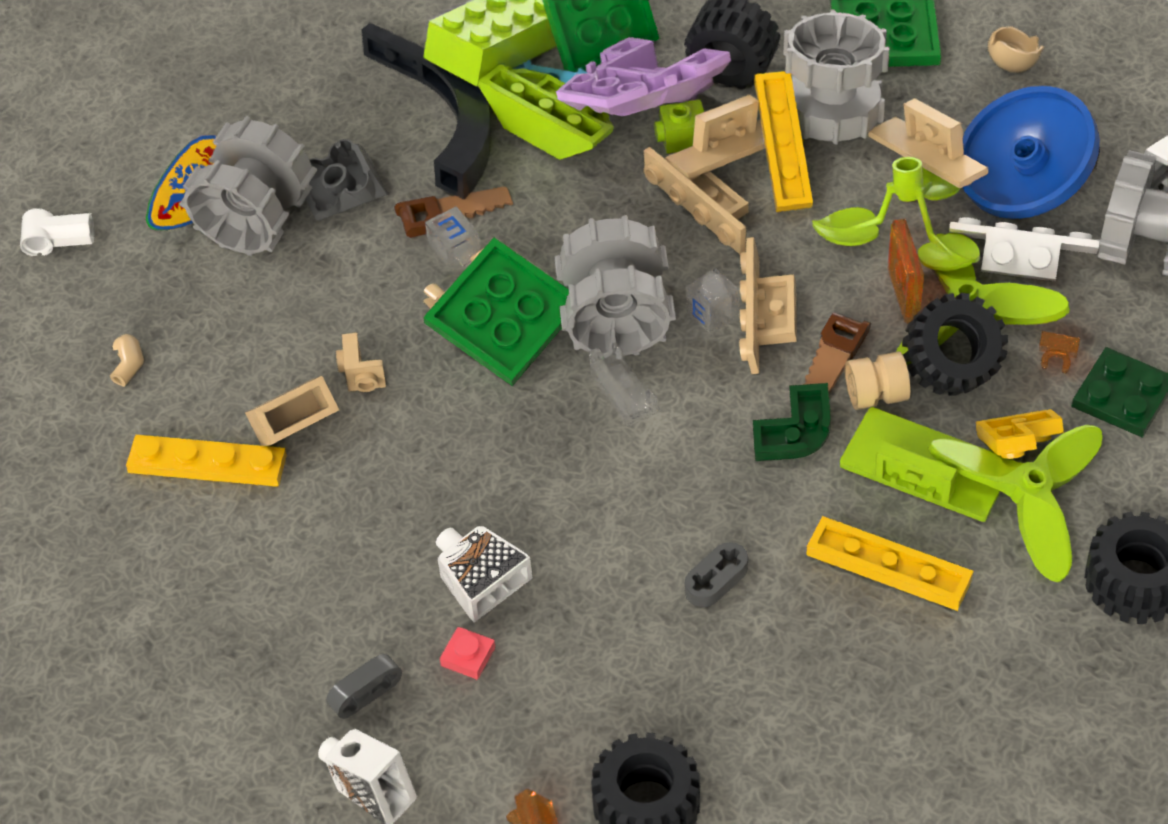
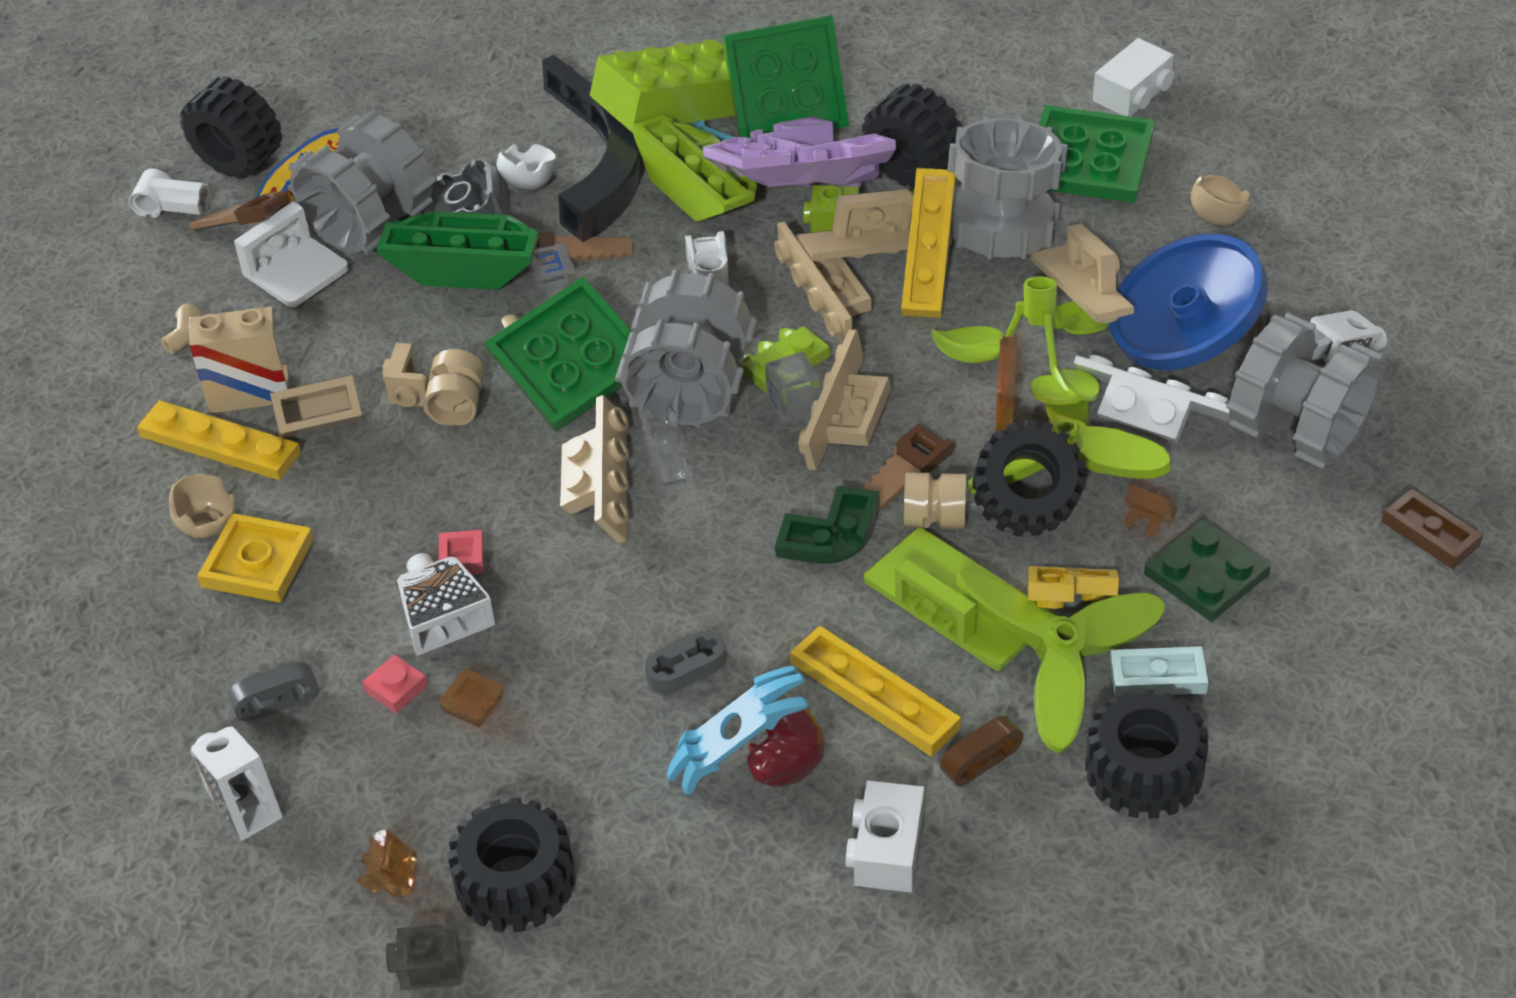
camera: 15 degrees right, 5 degrees down
(96, 154) = (231, 127): none -> black tyre
(155, 232) = (253, 211): none -> reddish brown piece
(198, 273) = (286, 259): none -> white bracket
(207, 381) = (237, 358): none -> tan panel
(218, 521) = (198, 499): none -> tan hair
(292, 565) = (256, 557): none -> yellow plate
(362, 229) = (459, 248): none -> green wedge
(387, 137) = (527, 169): none -> white hair
(409, 365) = (454, 387): none -> tan wheel
(478, 513) = (466, 547): none -> coral plate
(543, 650) = (471, 697): none -> clear orange plate
(566, 417) = (597, 470): none -> tan bracket
(587, 195) = (708, 256): none -> white piece
(693, 263) = (790, 343): none -> lime plate
(815, 612) = (757, 713): none -> medium azure piece
(842, 633) = (788, 751): none -> dark red hair
(952, 668) = (891, 860): none -> white brick
(1000, 596) = (981, 750): none -> reddish brown beam
(1118, 492) = (1159, 669): none -> light aqua plate

